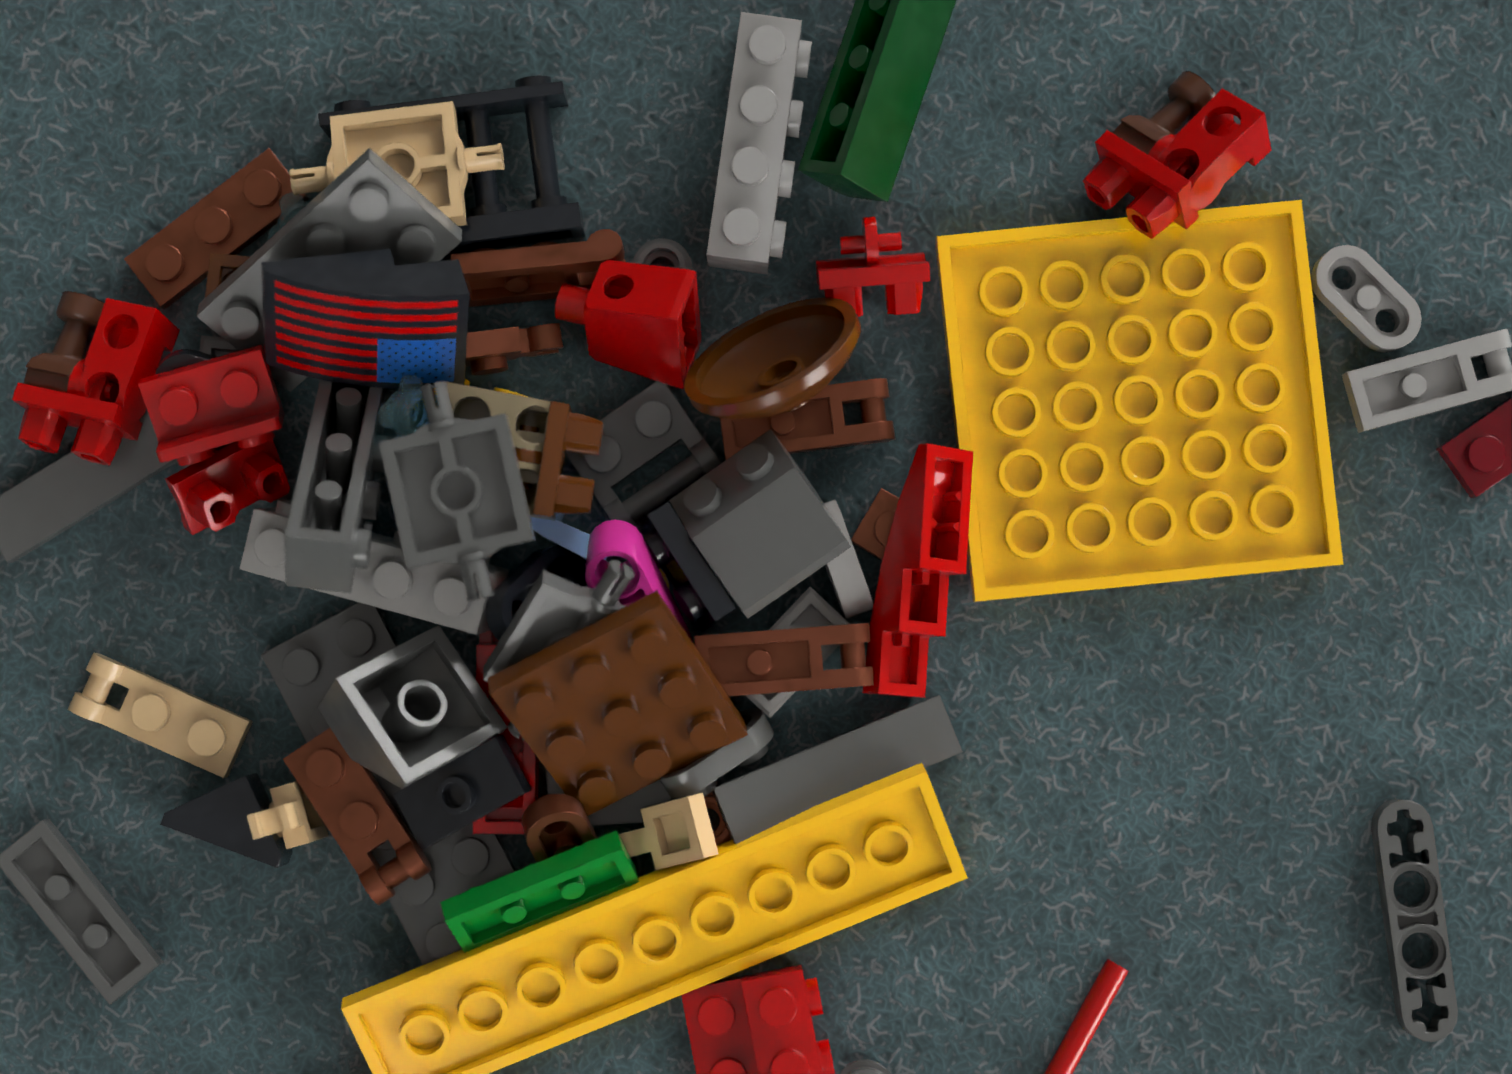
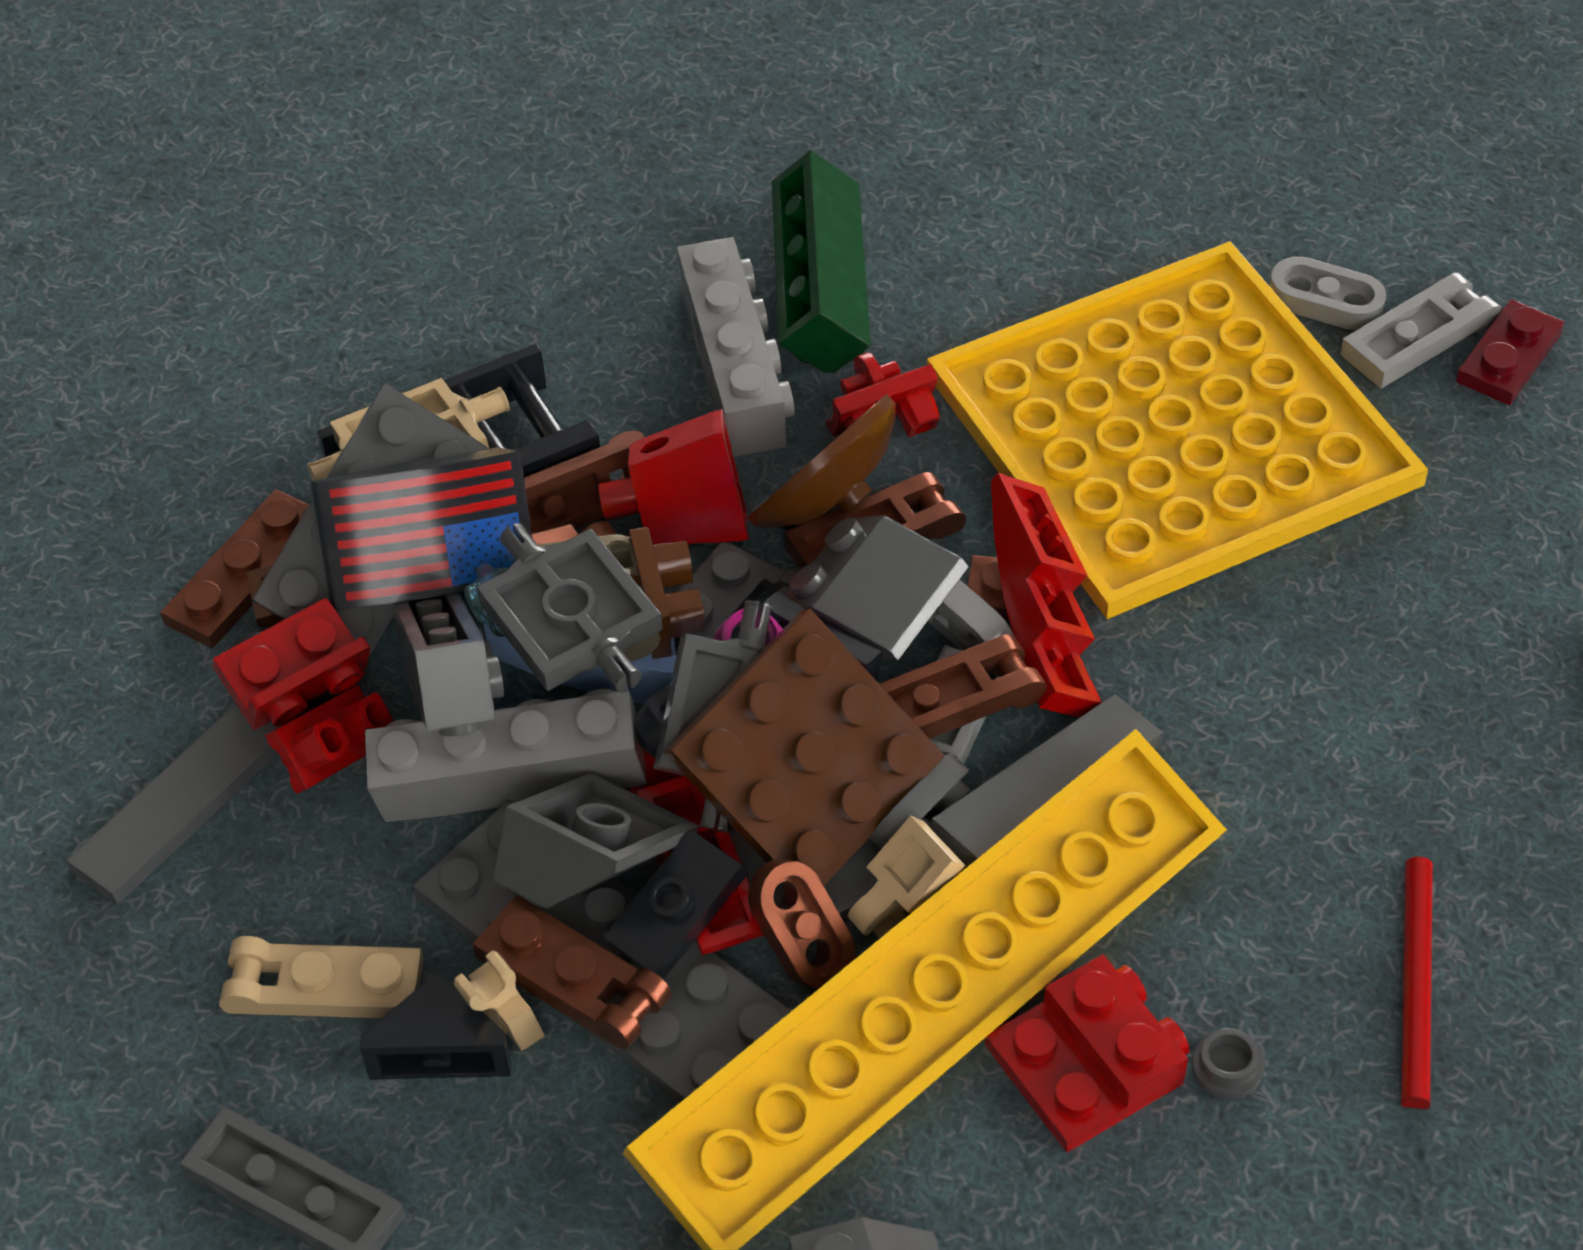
camera: 20 degrees left, 35 degrees down
(96, 391) = (159, 700): red hips -> none
(539, 891) = (794, 963): green plate -> none
(1182, 171) = (1109, 239): red hips -> none

